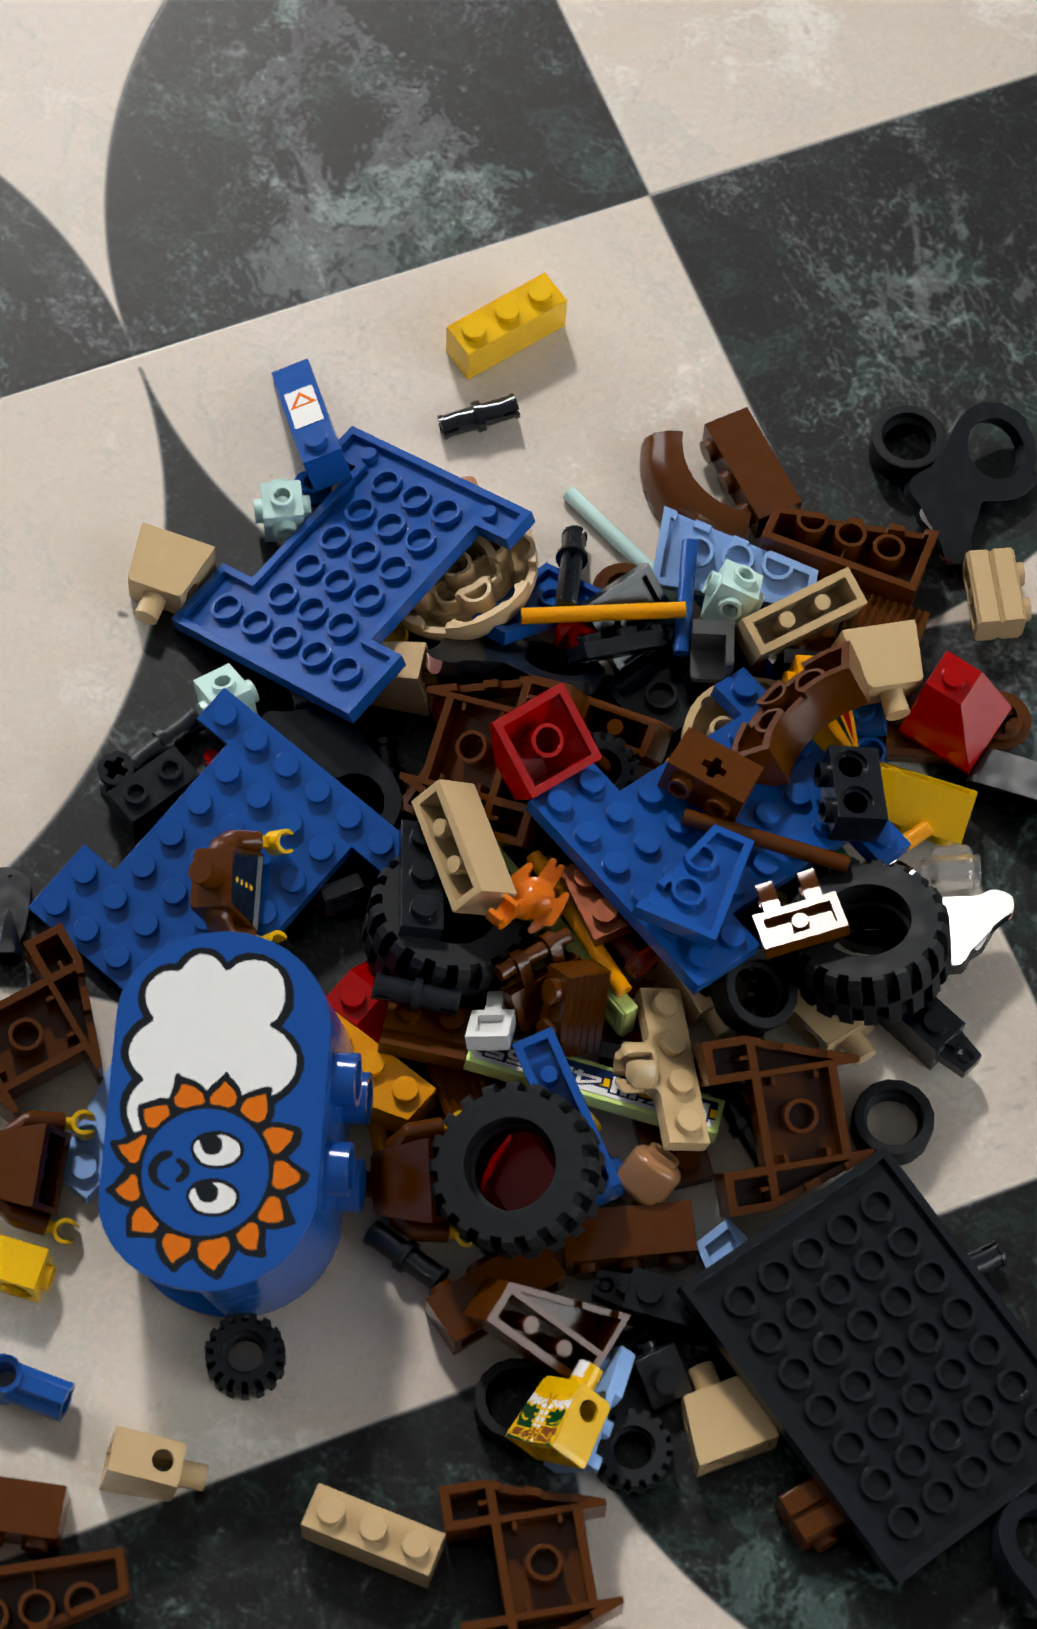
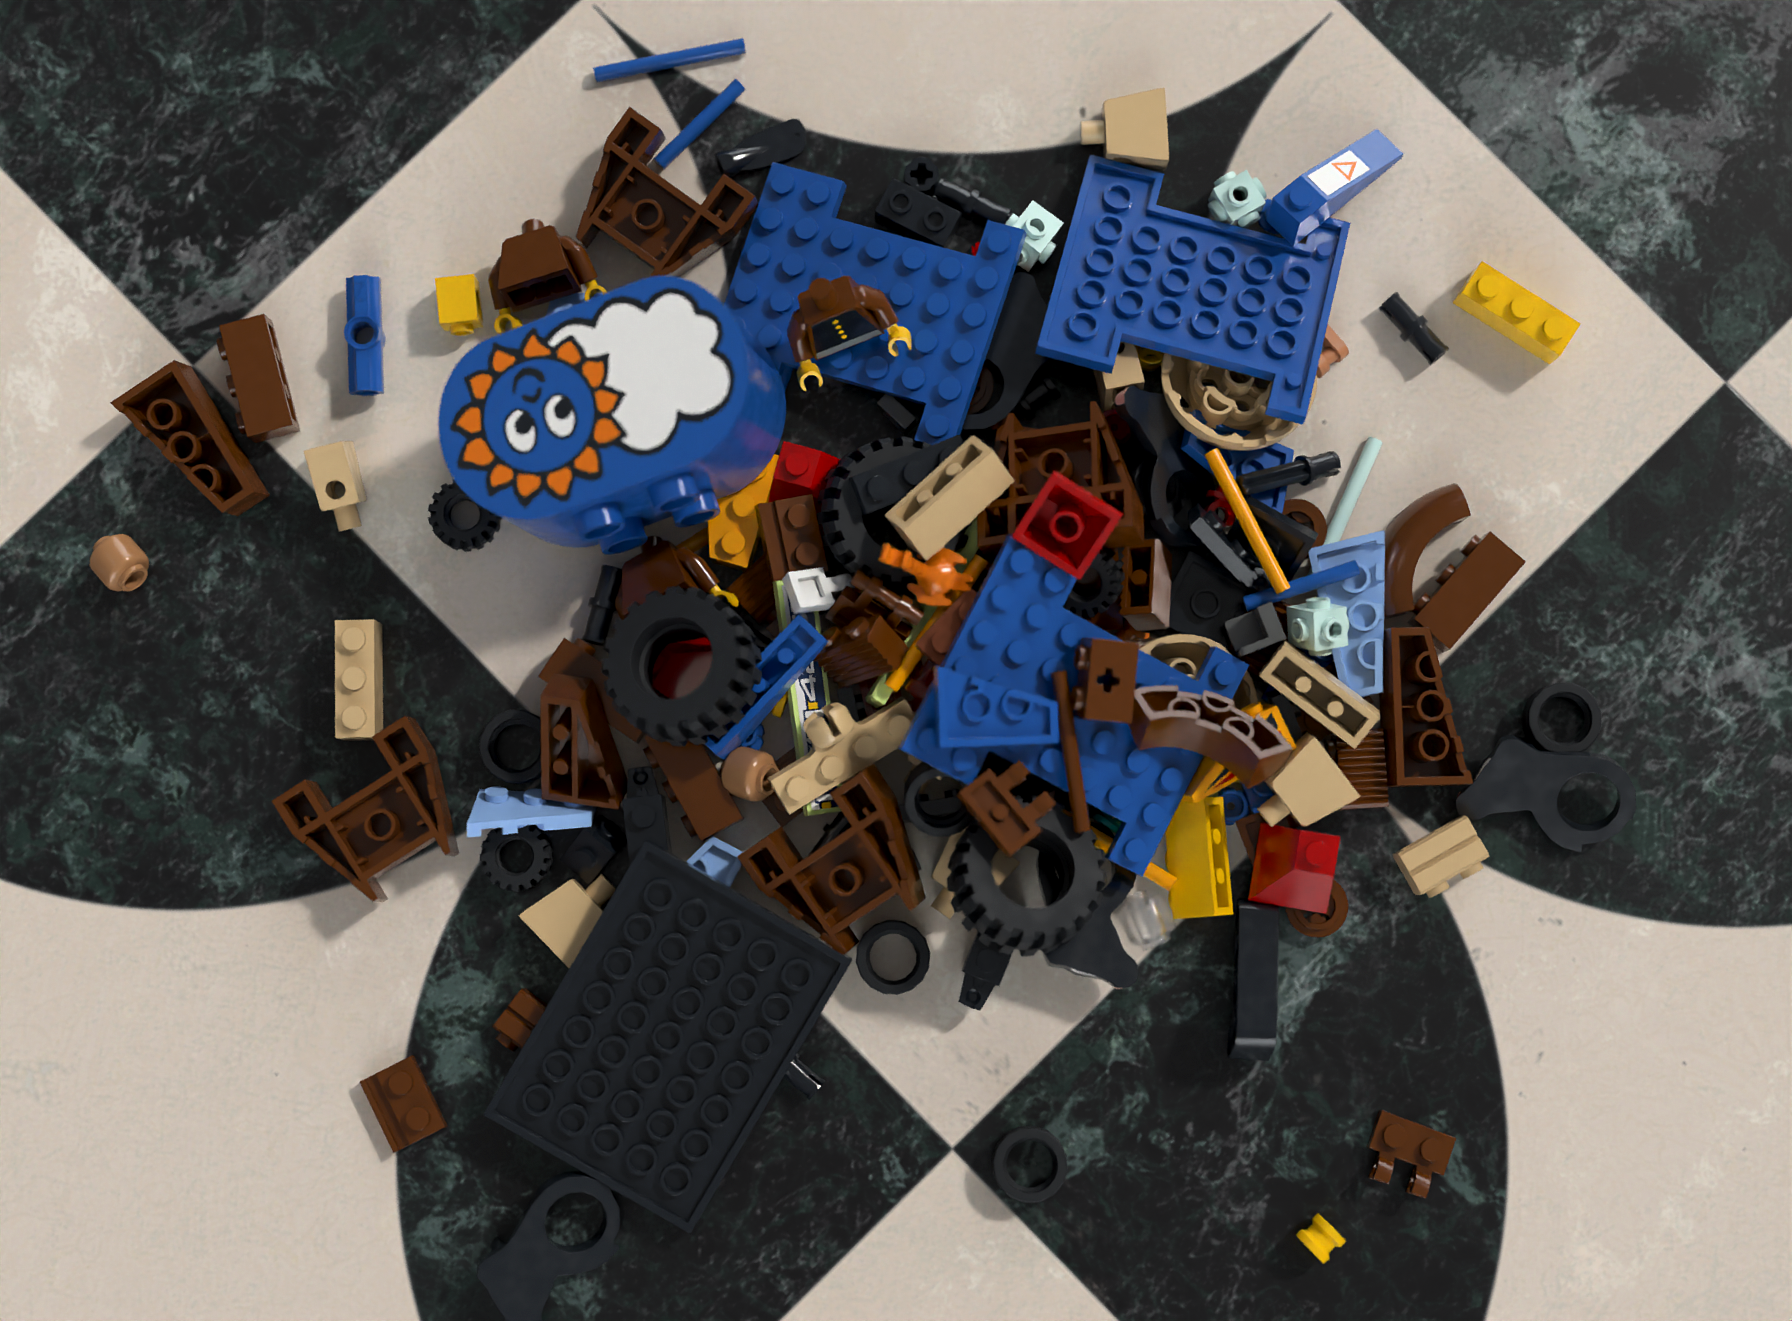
camera: 70 degrees right, 20 degrees up
(416, 994) = (809, 515): black pin -> none
(562, 1418) = (500, 791): yellow torso -> none
(851, 793) = (1156, 816): black brick -> none

